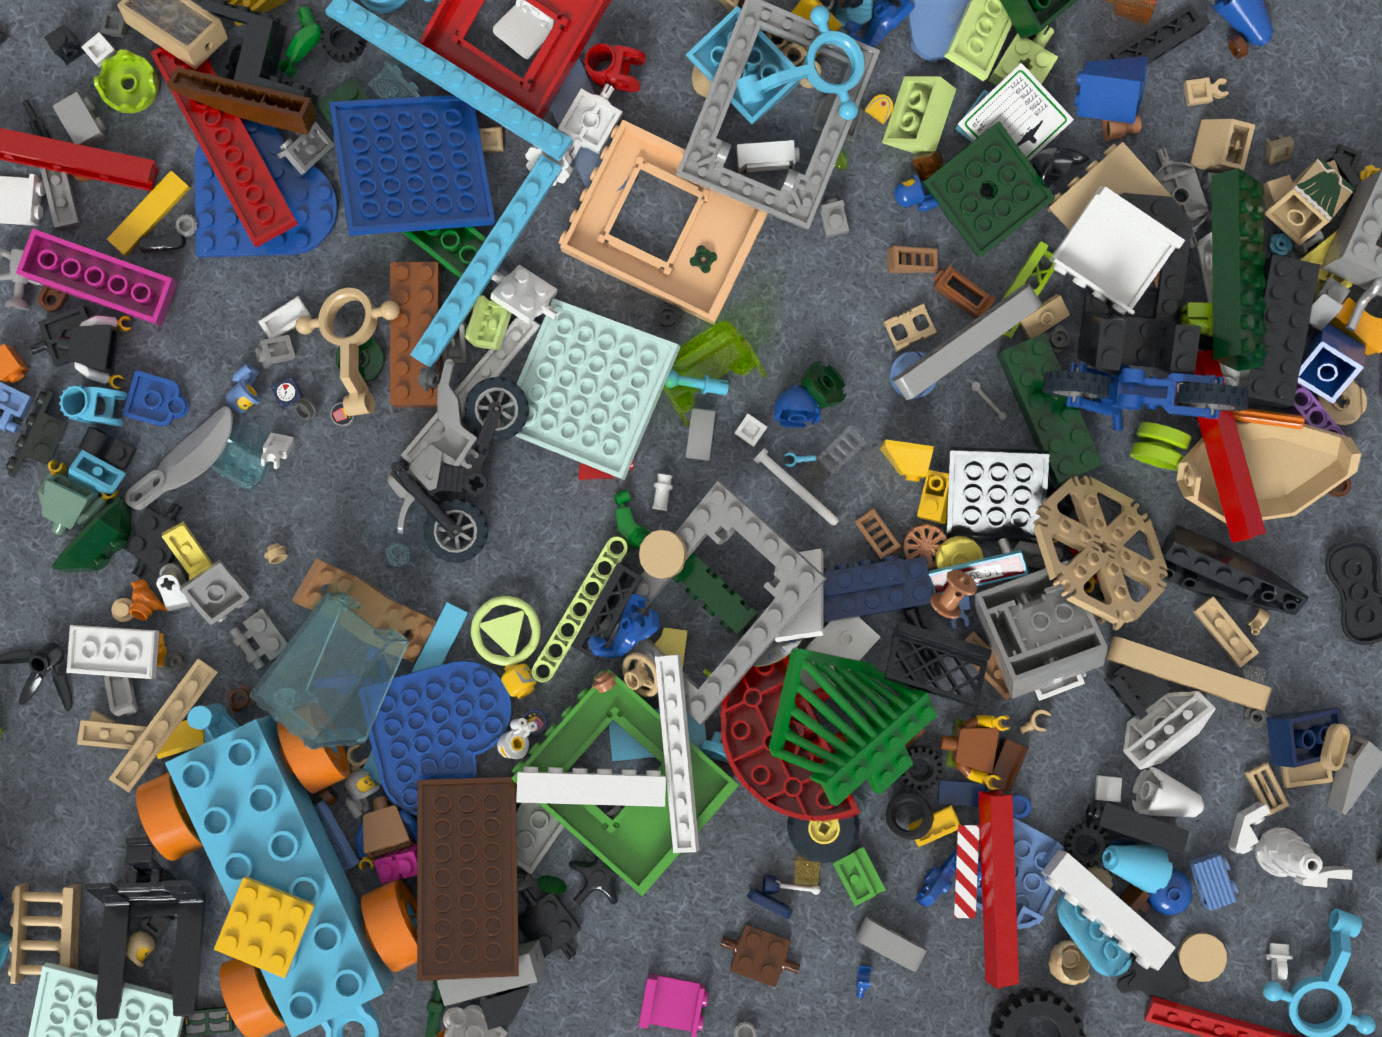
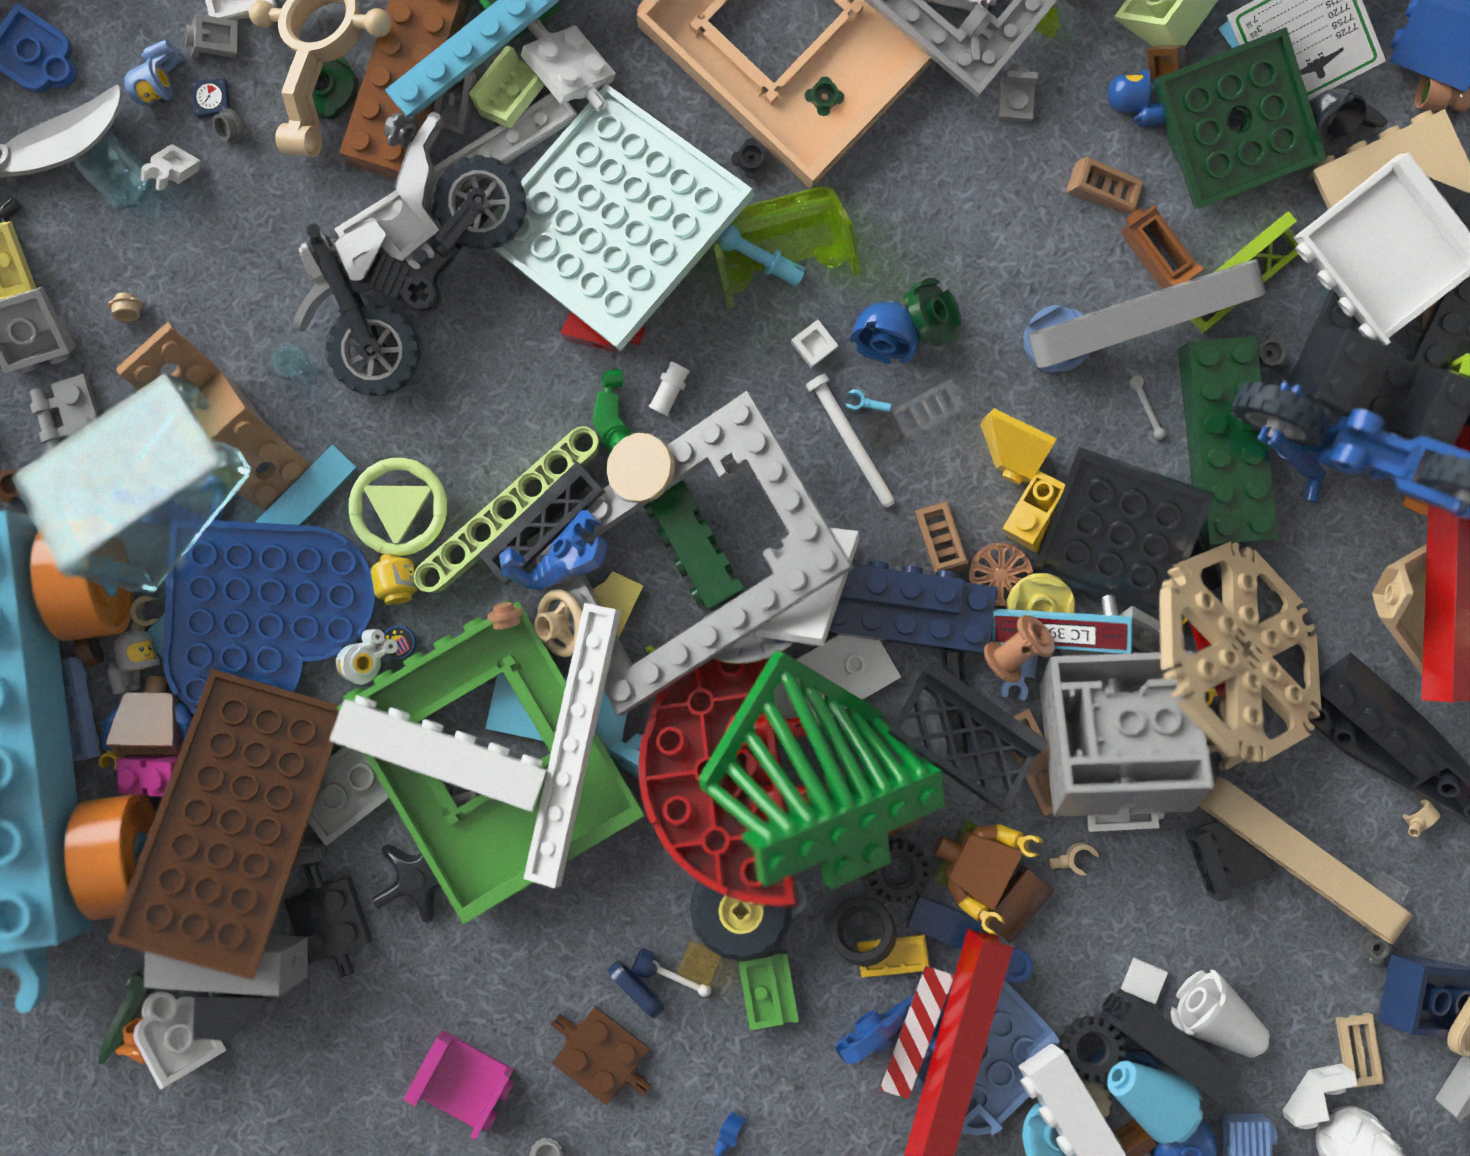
camera: 15 degrees right, 0 degrees up
(340, 417) = (271, 155): tile -> none
(551, 884) = (350, 869): dark green sticker -> none
(700, 433) = (745, 327): light grey slope -> none
(891, 944) = (782, 1097): light grey beam -> none
(906, 320) = (1074, 285): tan piece -> none
(1045, 317) = (1259, 316): tan plate -> none
(1160, 445) = (1364, 538): lime wheel -> none
(1166, 728) = (1253, 924): white wedge -> none
(1225, 631) = (1371, 819): tan plate -> none
(1305, 775) = (1418, 1049): tan tile -> none

